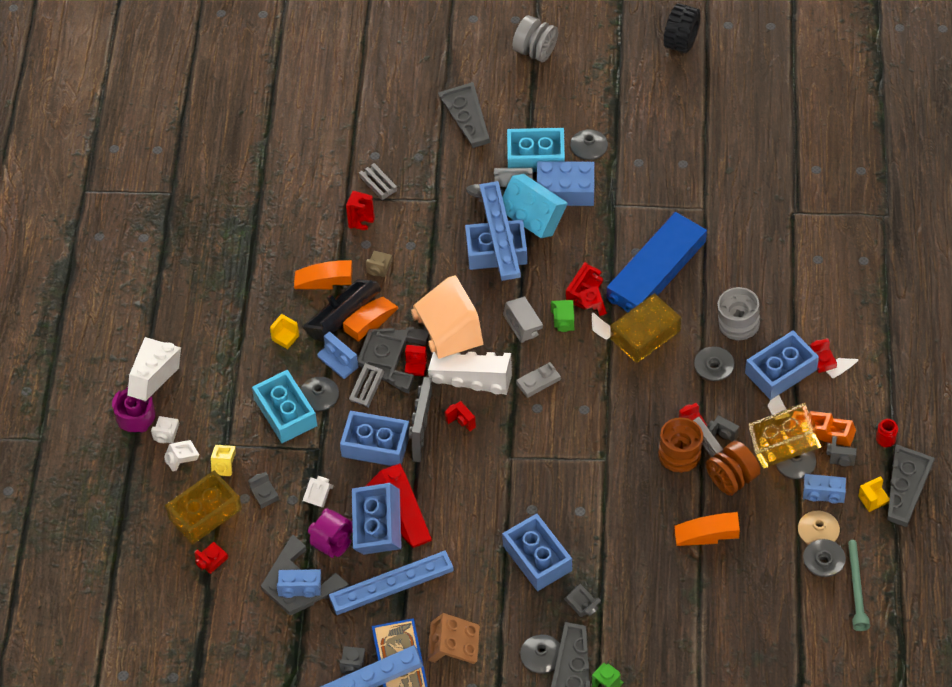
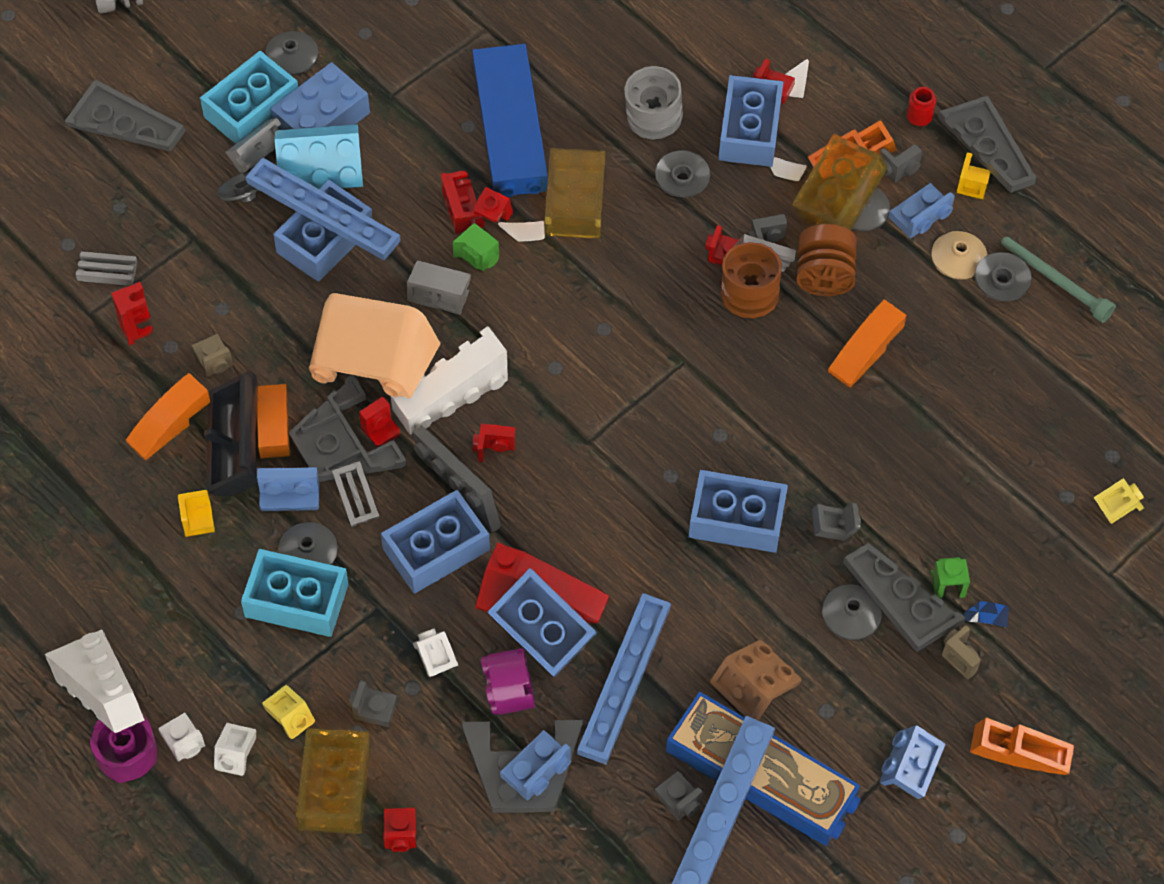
camera: 50 degrees left, 5 degrees up
(538, 380) = (525, 336): light grey plate -> none

